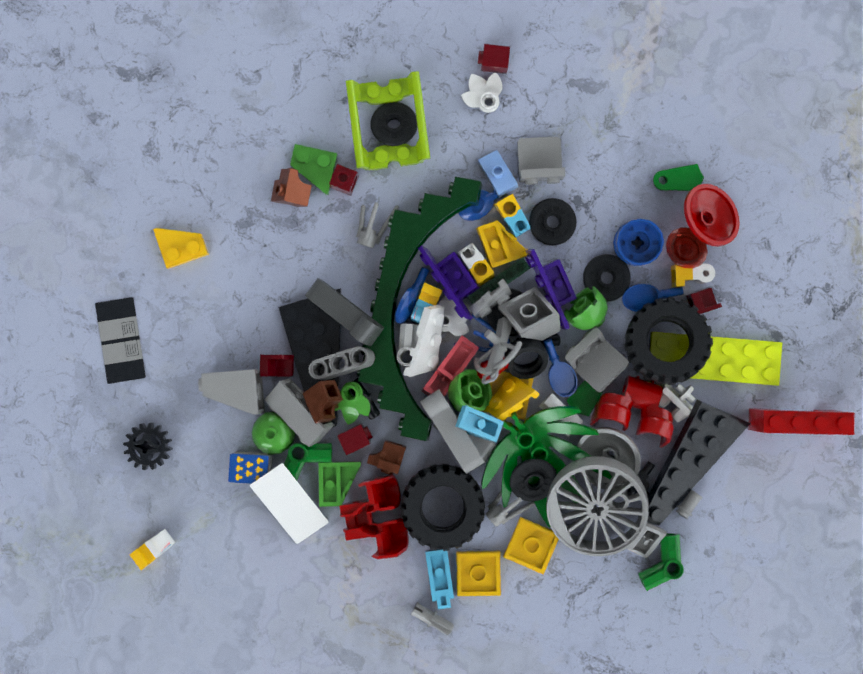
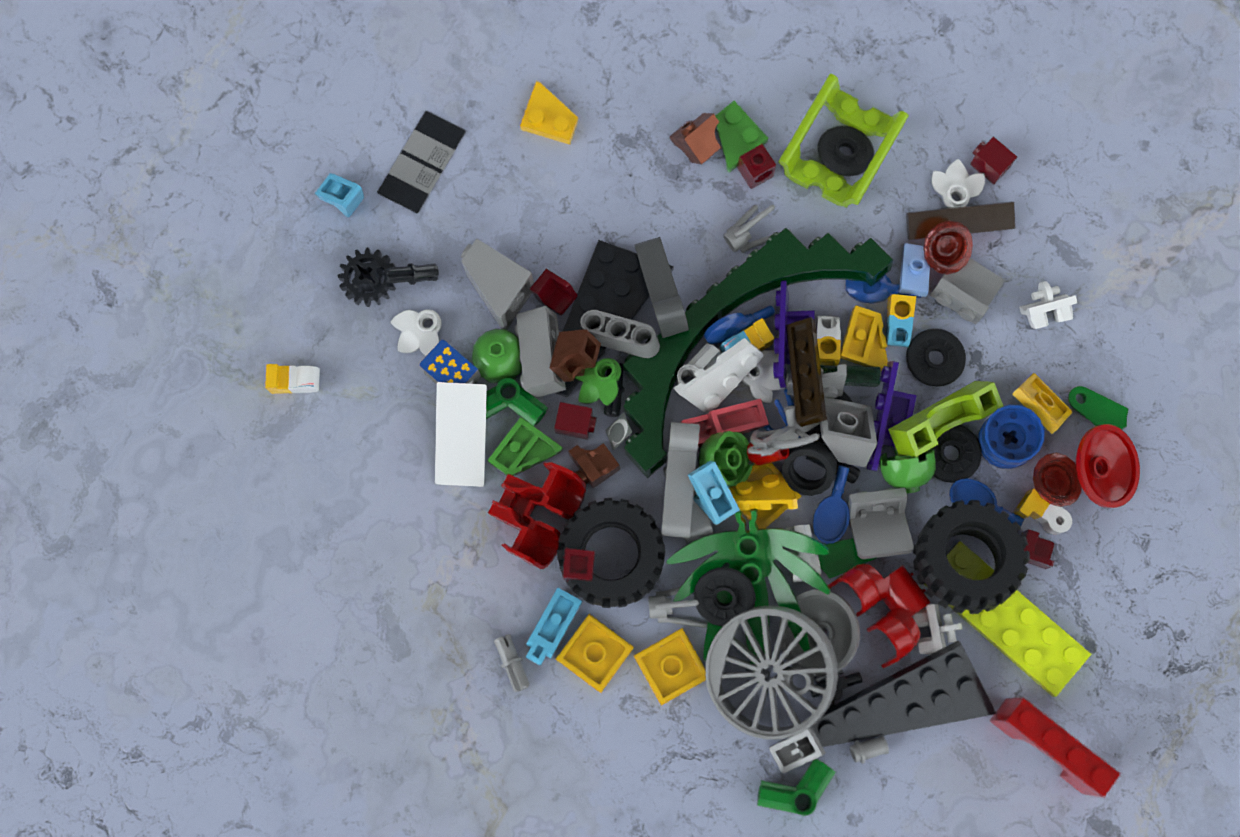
camera: 40 degrees right, 10 degrees down
(84, 405) = (341, 193): none -> medium azure slope
(175, 423) = (411, 273): none -> black axle
(208, 459) = (414, 334): none -> white plate
(388, 424) = (618, 431): none -> light grey sticker
(431, 537) = (578, 564): none -> dark red panel
(480, 300) = (806, 372): none -> dark brown tile
(503, 116) = (976, 218): none -> dark brown tile
(509, 144) = (948, 247): none -> clear red hat
(595, 240) = (967, 404): none -> lime arch
(597, 131) = (1060, 305): none -> white hips
(642, 204) = (1043, 402): none -> yellow tile

